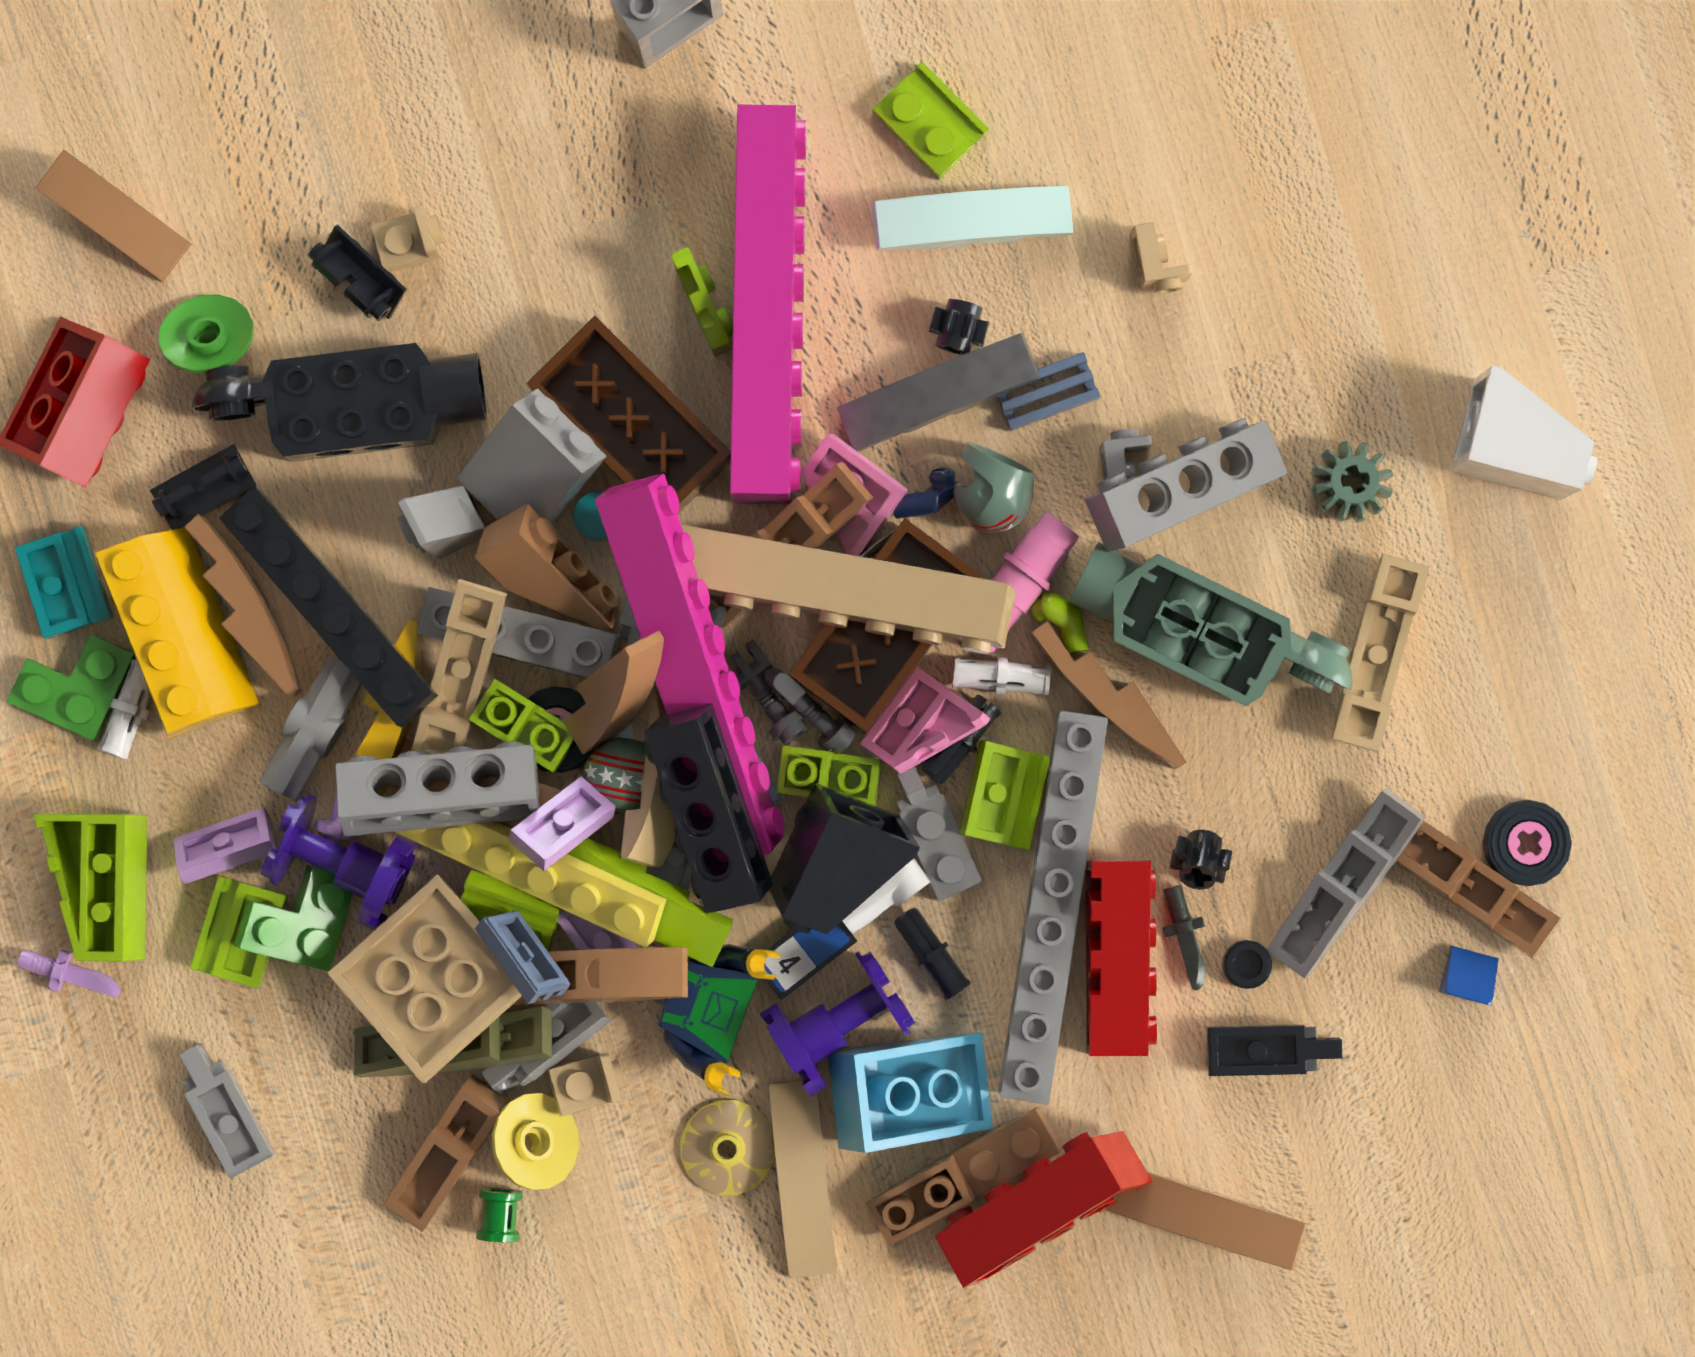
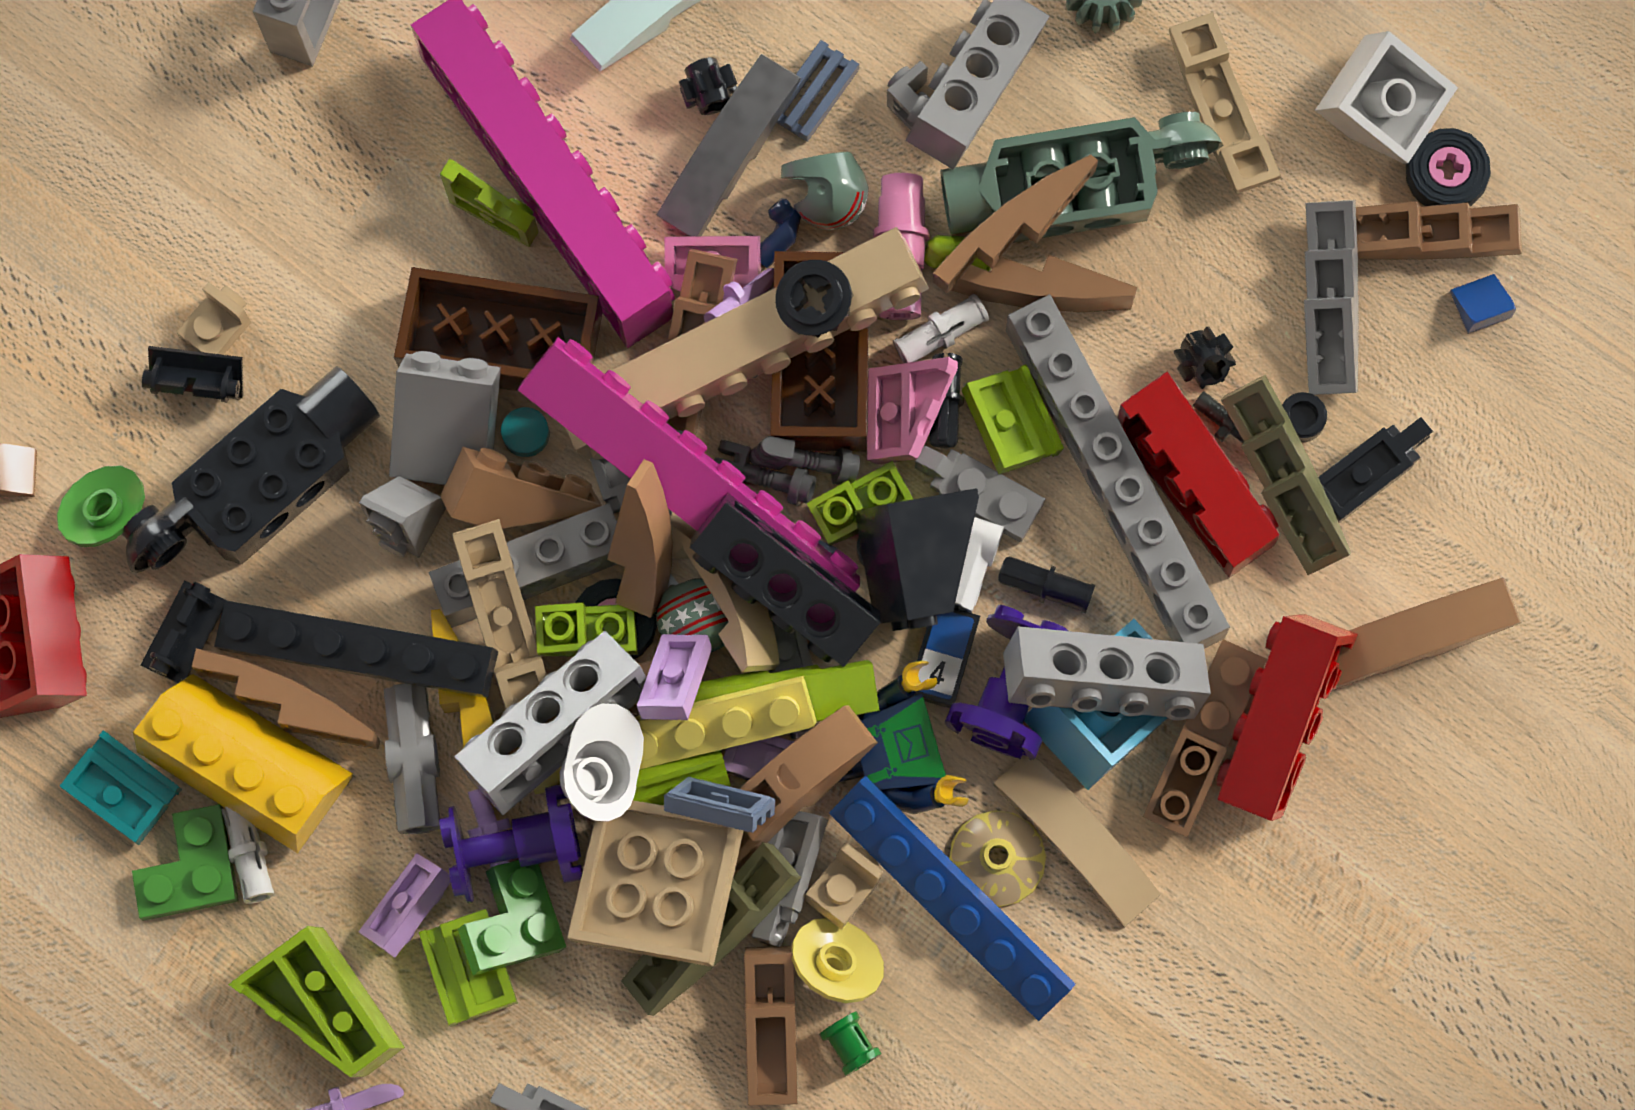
camera: 35 degrees left, 10 degrees down
(450, 856) = (602, 762): none -> white piece
(662, 1158) = (952, 898): none -> blue plate
(845, 534) = (736, 295): none -> lavender piece
(880, 579) = (792, 296): none -> black gear
(978, 1106) = (1106, 673): none -> light grey brick
(1139, 641) = (1027, 213): none -> medium nougat slope
(1193, 1009) = (1287, 475): none -> olive slope
(1520, 746) = (1386, 97): none -> white slope

